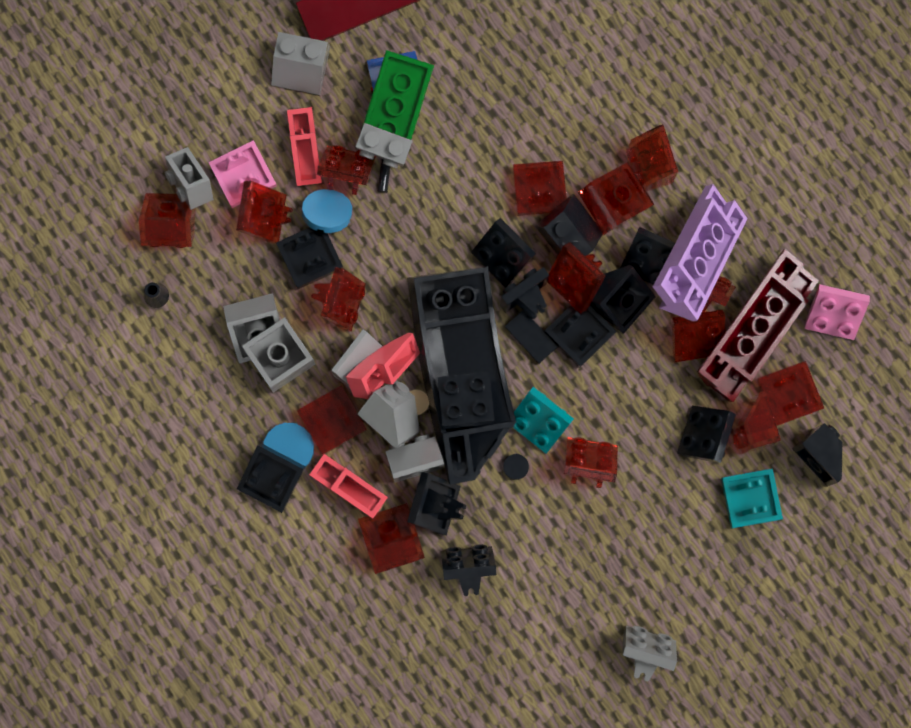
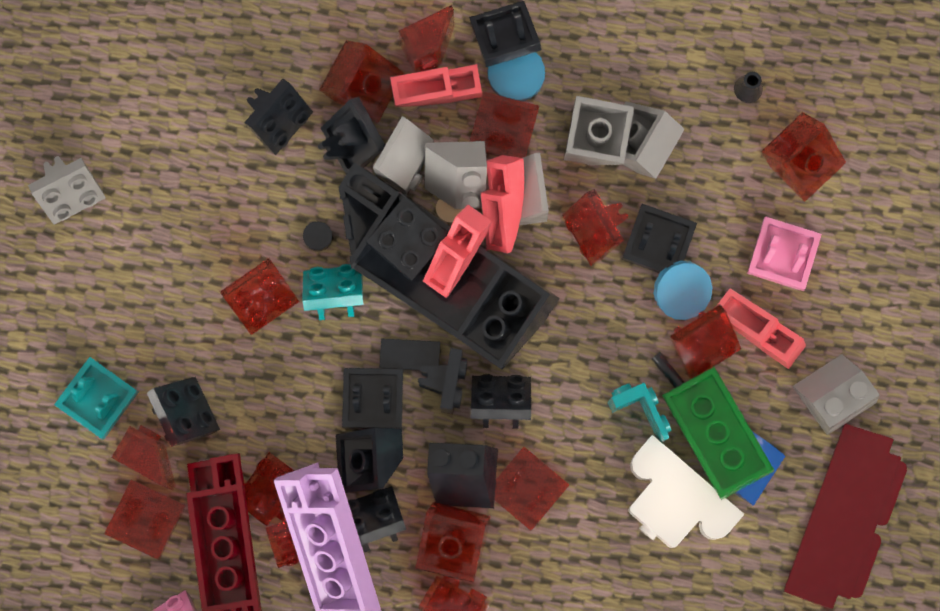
camera: 145 degrees right, 0 degrees up
(189, 178) = (821, 201): light grey brick -> none
(262, 212) = (733, 234): clear red plate -> none
(326, 517) = (428, 40): none -> clear red slope
(384, 145) = (691, 384): light grey brick -> none
(426, 177) = (627, 395): none -> teal bracket
(442, 362) = (457, 250): none -> coral slope
(457, 96) = (677, 498): none -> white brick
(576, 277) = (418, 434): clear red plate -> none
(822, 453) = (70, 490): black slope -> none

